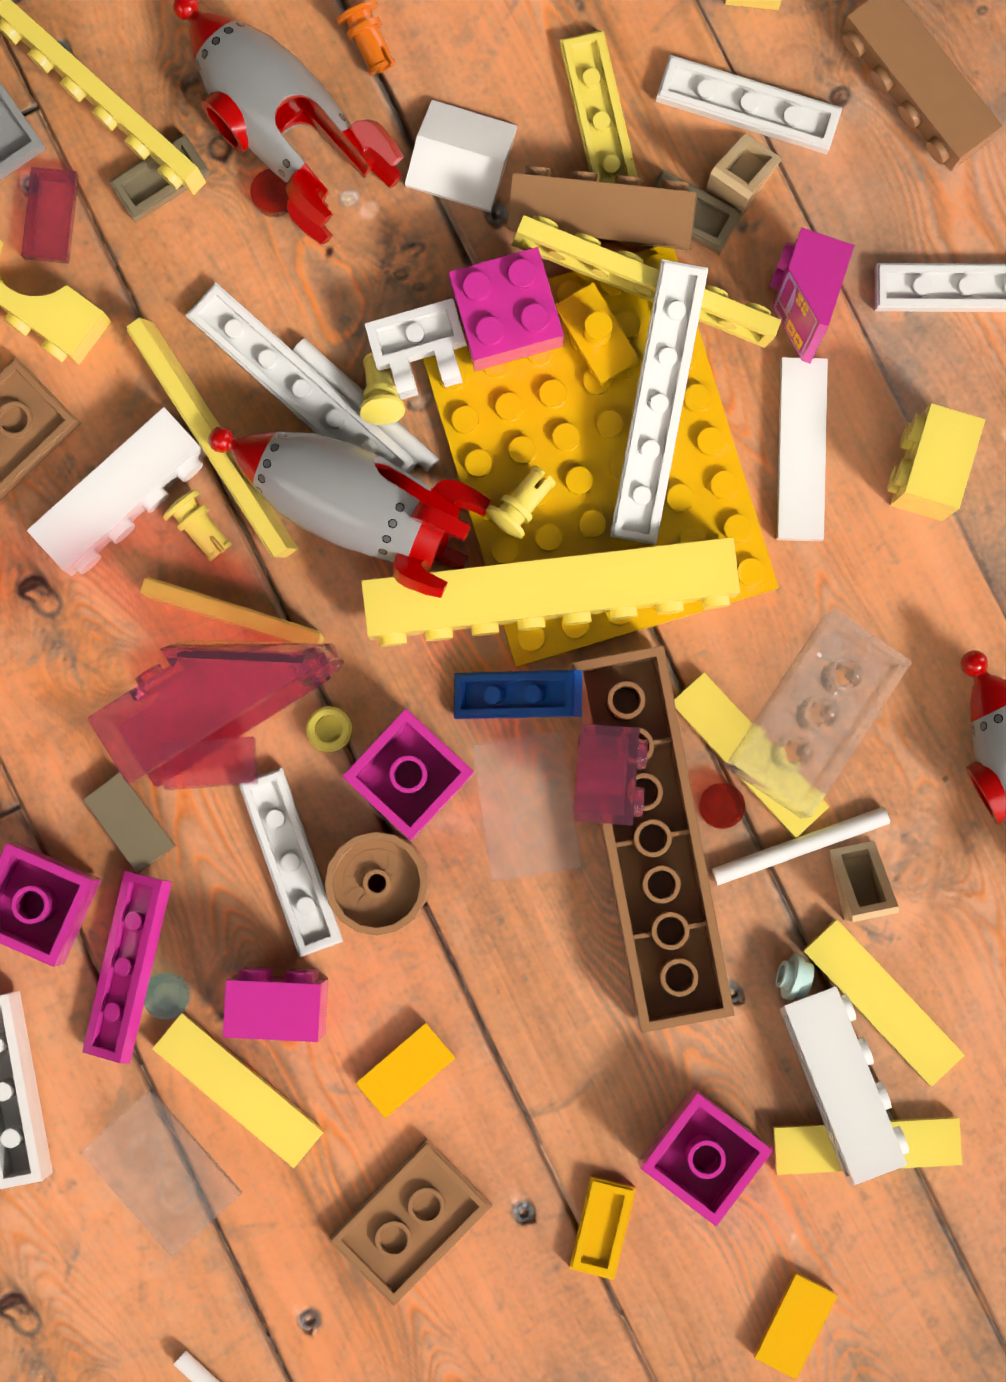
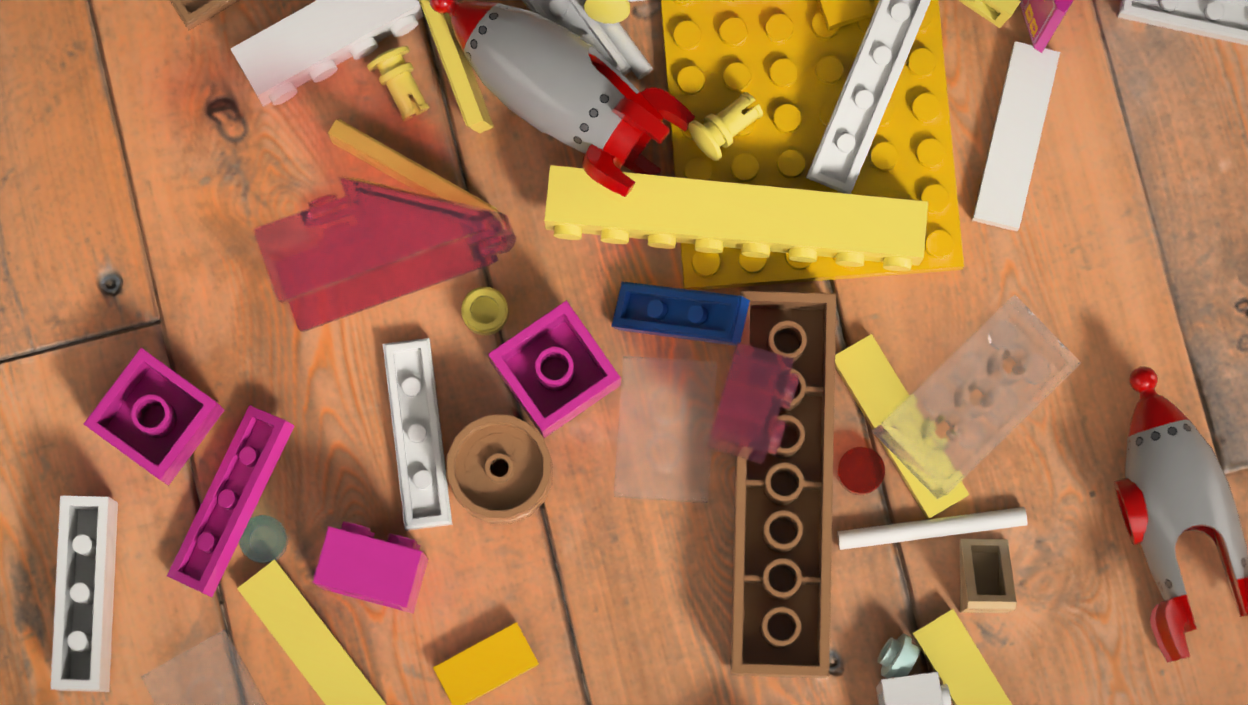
camera: 10 degrees right, 5 degrees down
(129, 822) = (265, 359): dark tan tile -> none
(213, 764) = (358, 317): clear pink tile -> none
(936, 462) = (1149, 170): light yellow brick -> none

